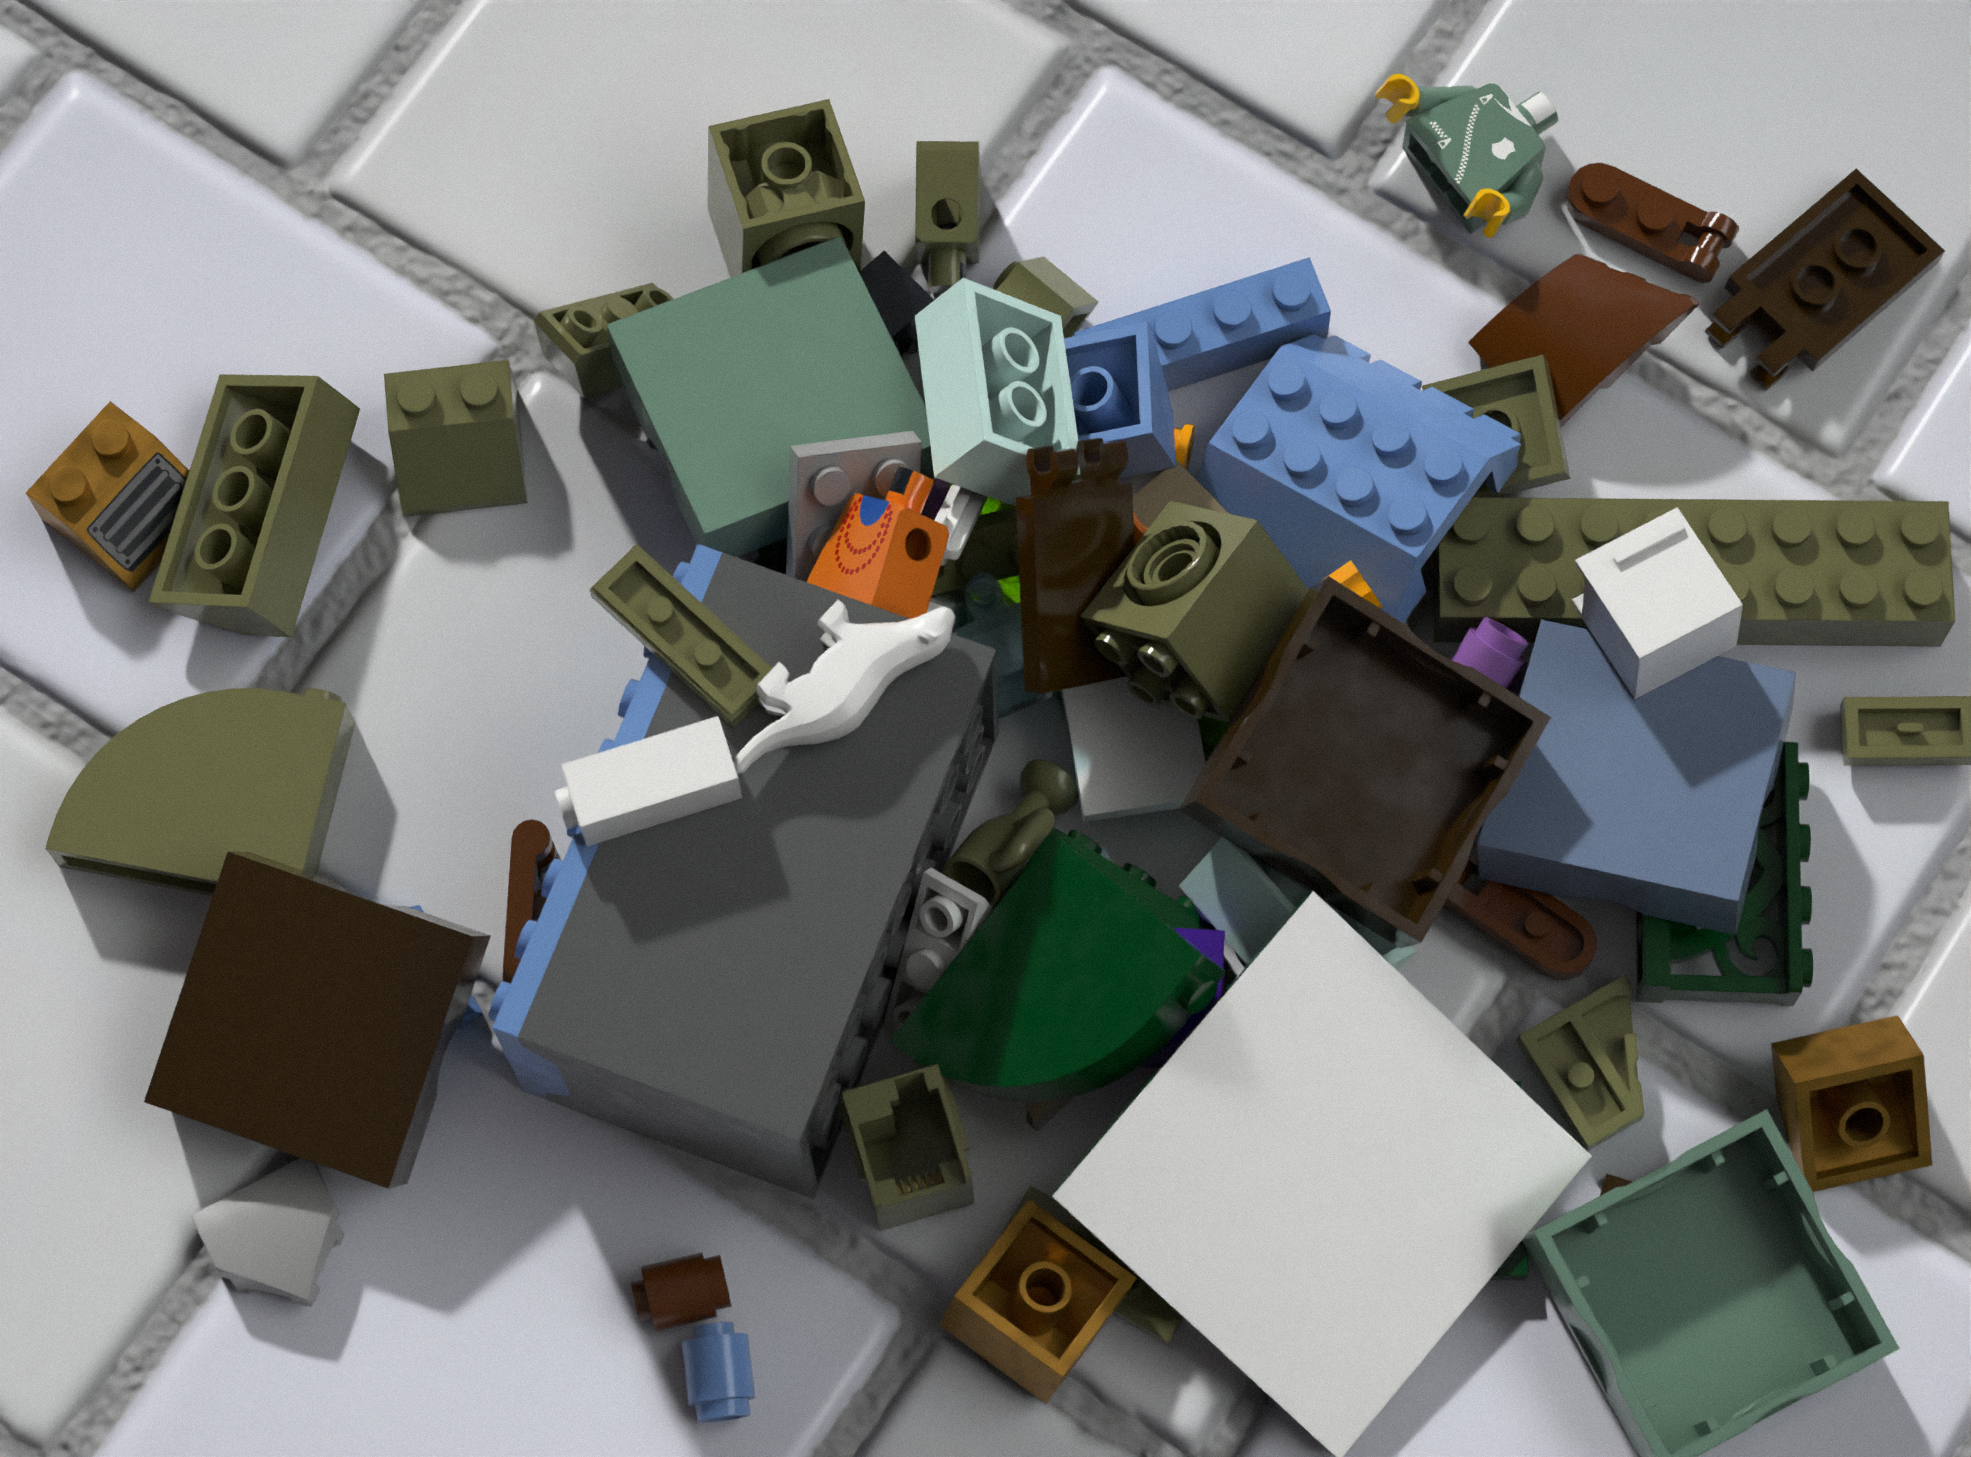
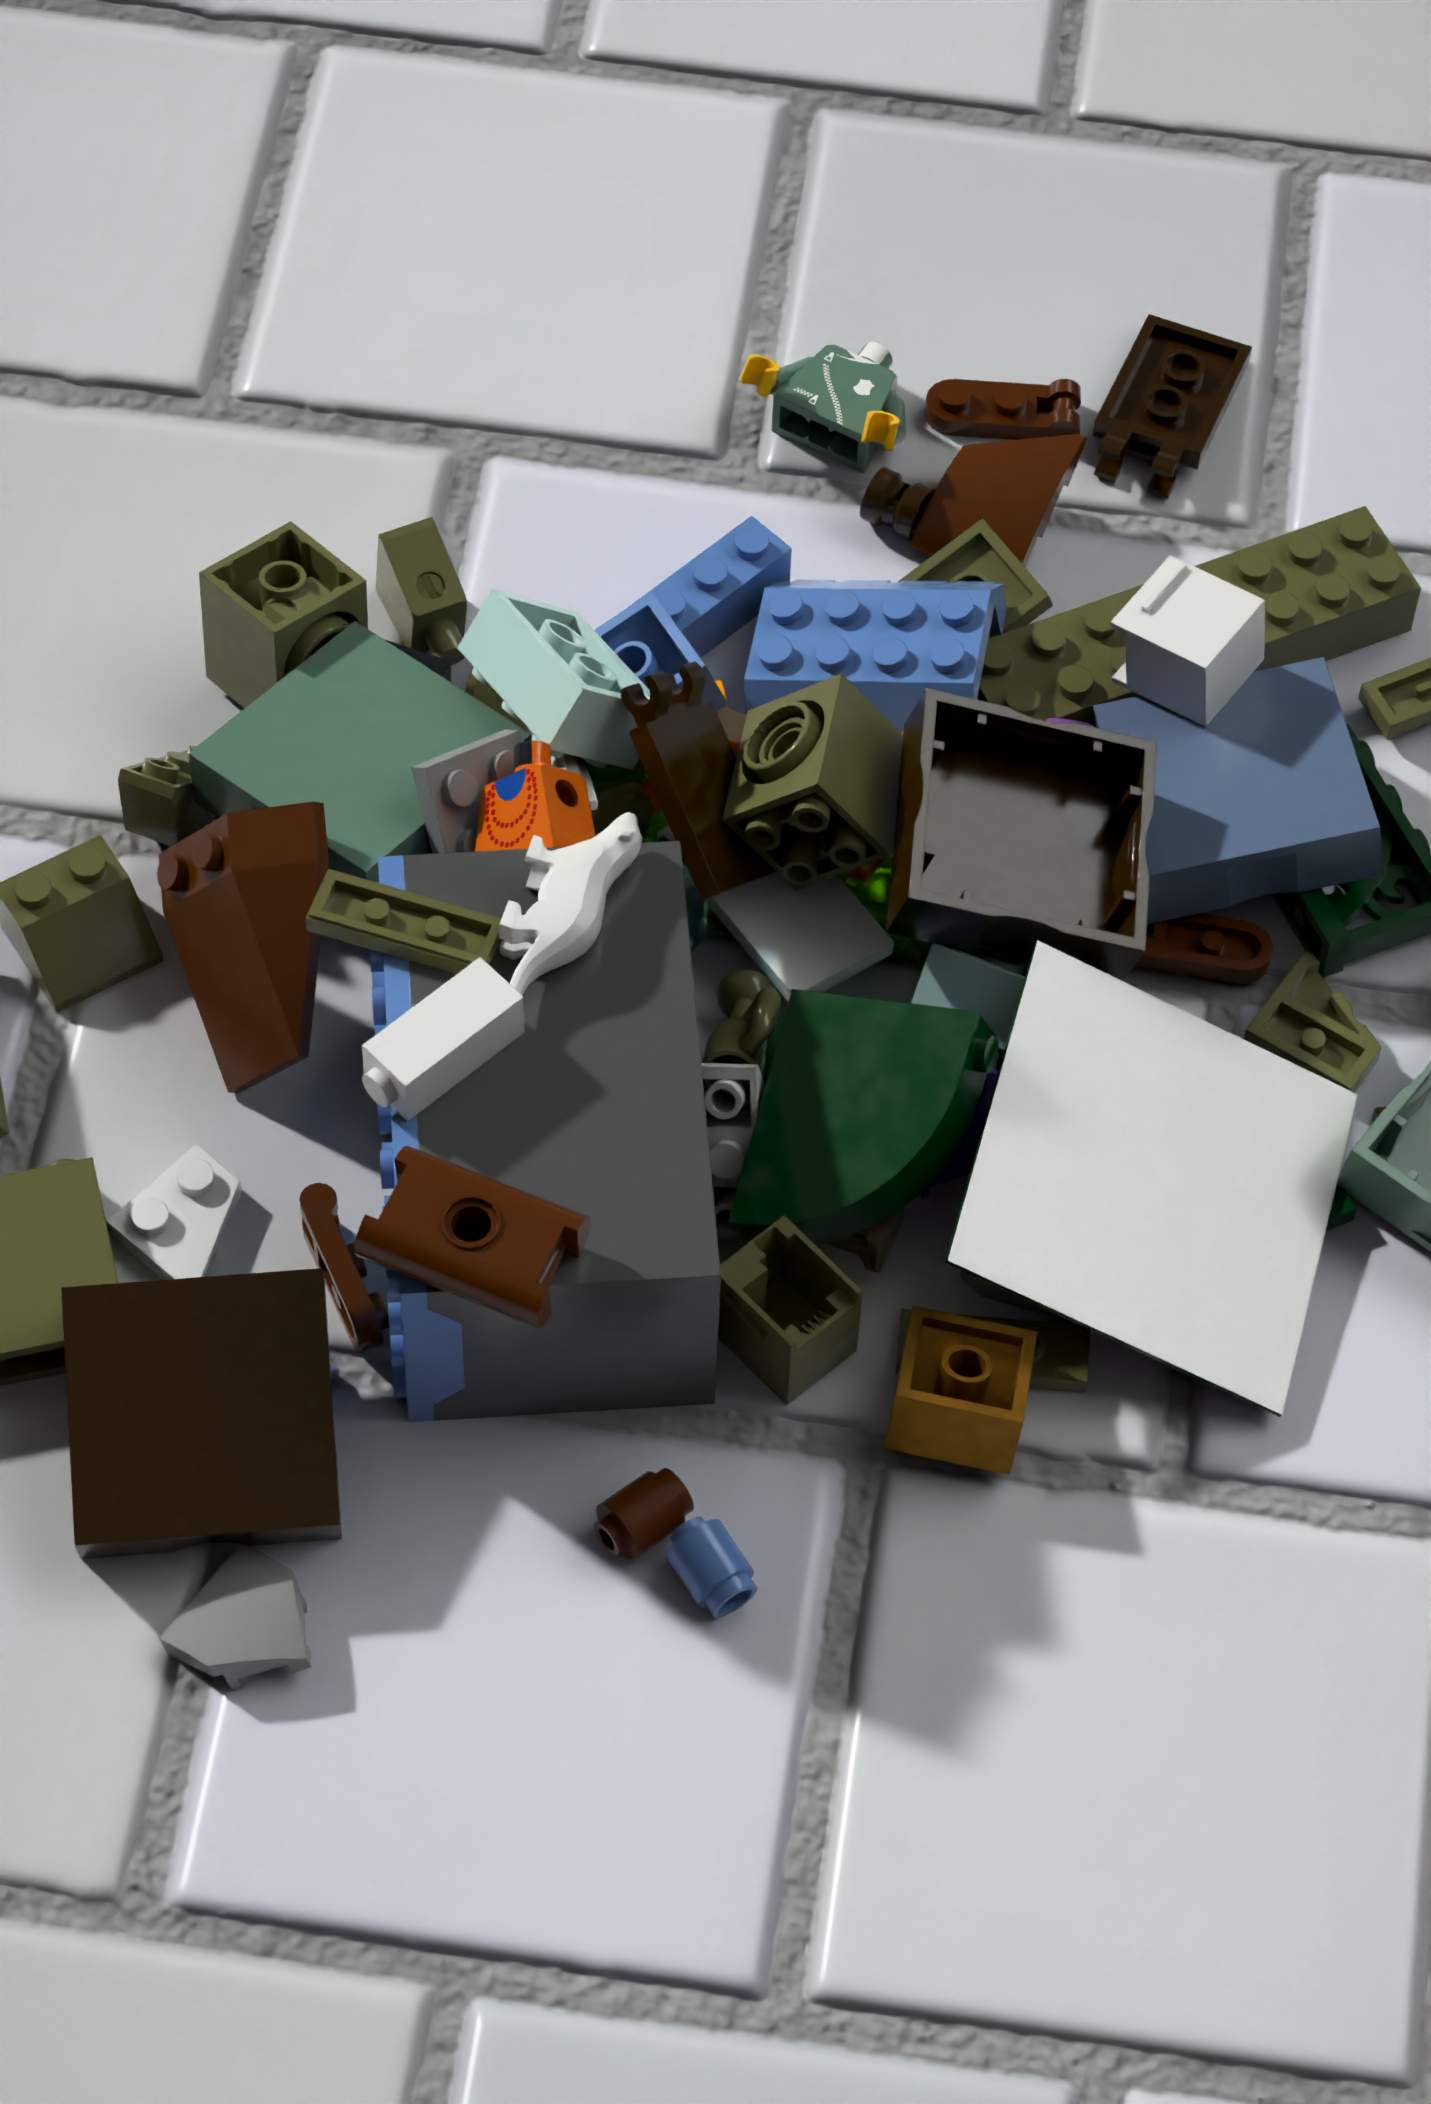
camera: 30 degrees left, 15 degrees down
(411, 790) = (179, 1216): none -> white wing
(584, 507) = (239, 927): none -> reddish brown wedge
(588, 1056) = (504, 1269): none -> reddish brown piece
(1475, 289) = (895, 502): none -> dark brown wheel

